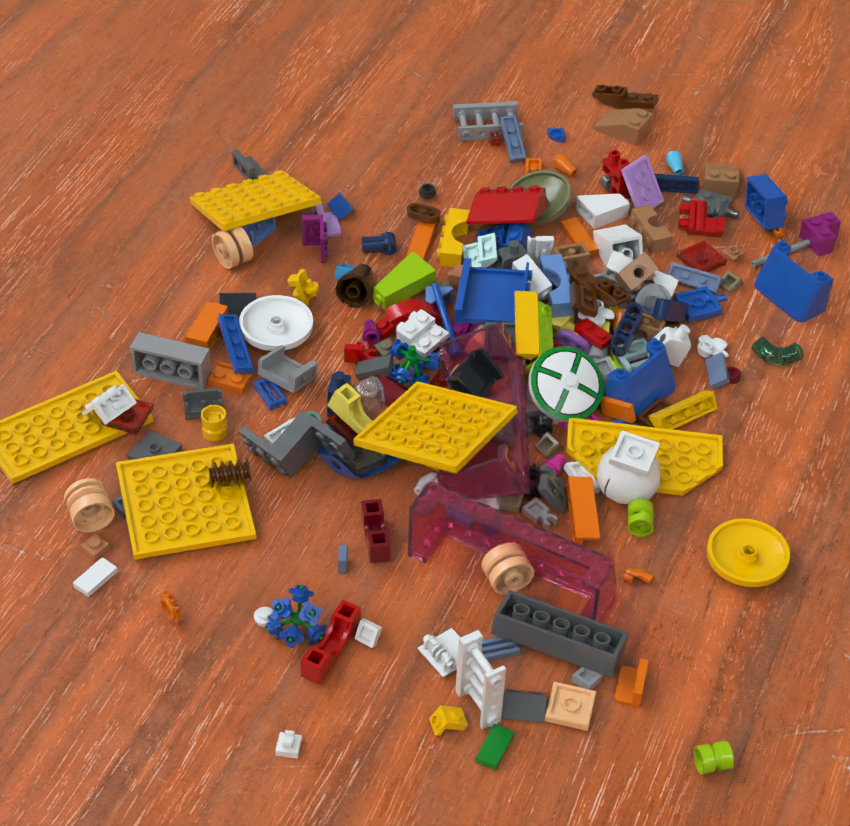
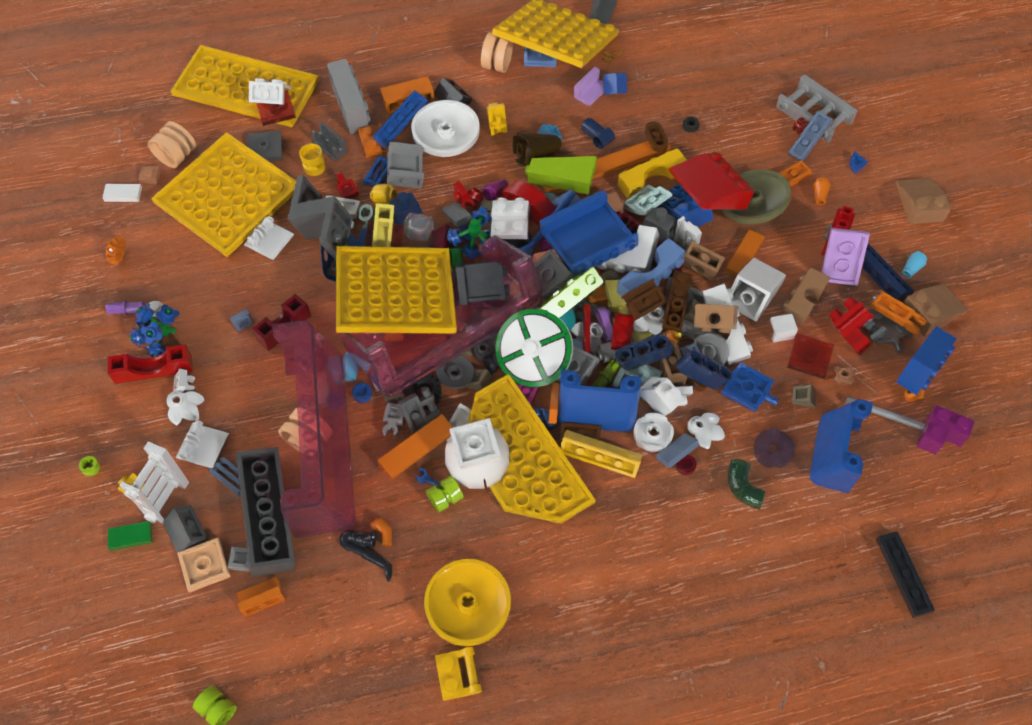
camera: 55 degrees right, 15 degrees up
(229, 472) = (259, 198): reddish brown piece -> none
(241, 636) = (123, 308): none -> medium lavender axle
(267, 420) = (346, 188): none -> red plate
(267, 499) = (268, 238): none -> white hinge
(288, 744) = (45, 401): white tile -> none
(303, 399) = (383, 193): none -> yellow head
(313, 233) = (561, 92): magenta bracket -> none
(393, 645) = (185, 408): none -> white plate
(396, 749) = (86, 470): none -> lime bush
(526, 324) = (563, 276): yellow slope -> none
(538, 452) = (461, 367): none -> dark grey dish
(556, 463) = (454, 396): dark pink cone -> none
(602, 208) = (795, 248): white slope -> none
(610, 525) = (425, 478): none -> blue hand
(620, 98) = (954, 180): reddish brown slope -> none
(635, 596) = (358, 541): none -> black piece
(667, 252) = (784, 328): none -> white panel
(687, 382) = (646, 440): none -> white plate
(694, 277) = (777, 365): sand blue tile -> none
(713, 191) = (898, 312): none -> orange hinge
(751, 318) = (781, 440): none -> plate
(797, 601) = (450, 674): none -> yellow plate

